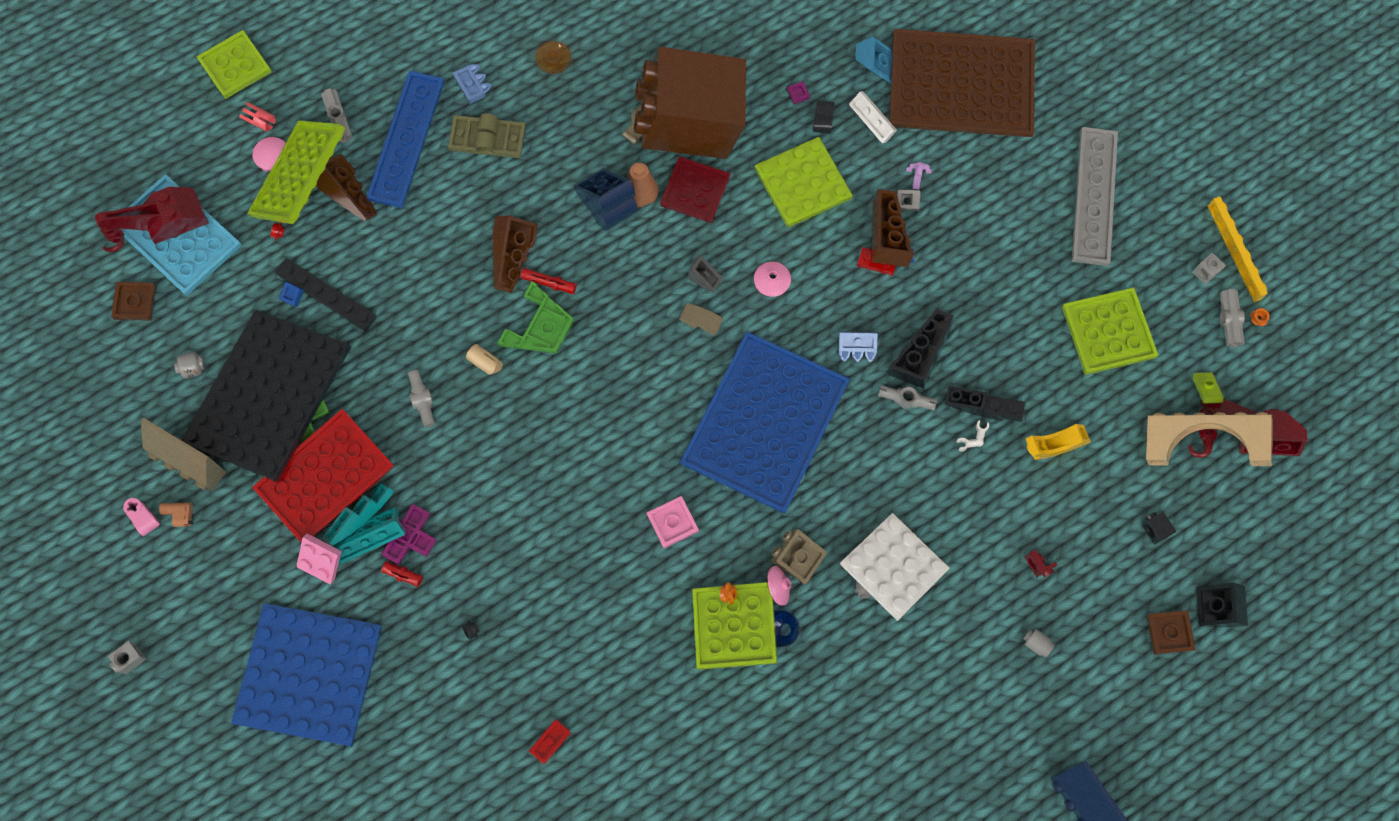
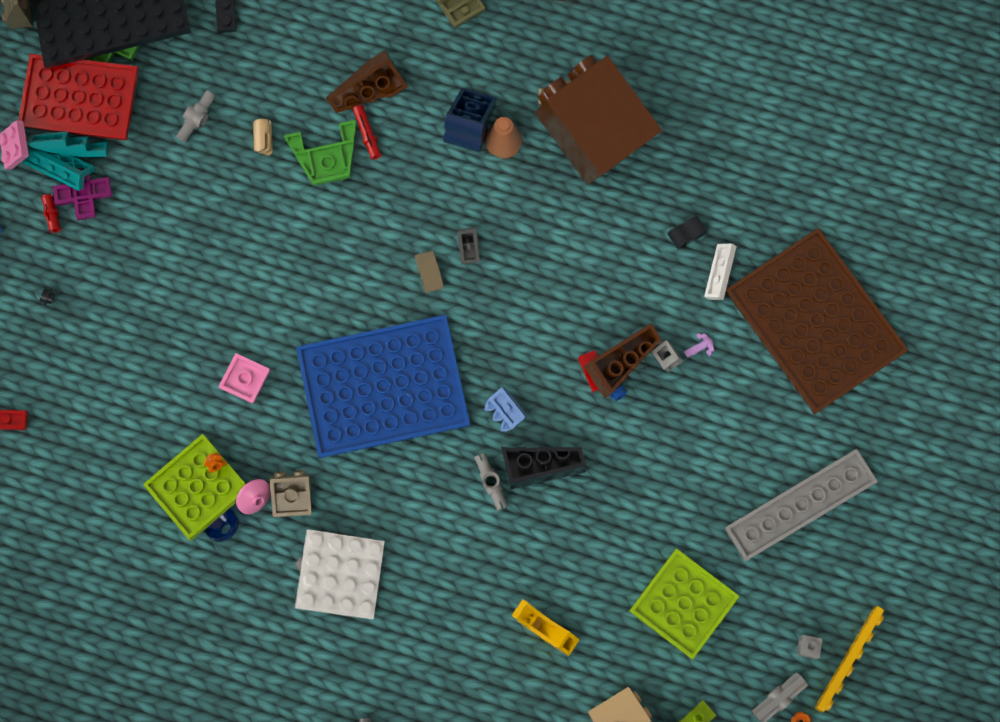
camera: 55 degrees right, 5 degrees up
(695, 189) = (537, 182): dark red plate -> none
(769, 286) = (508, 309): bright pink dish -> none
(798, 92) = (694, 196): magenta tile -> none
(803, 182) = (616, 260): lime plate -> none
(875, 57) = (775, 233): dark azure slope -> none
(974, 442) = (500, 566): white arm -> none
(984, 405) = (534, 547): black slope -> none
(1037, 564) = (431, 685): dark red bracket -> none

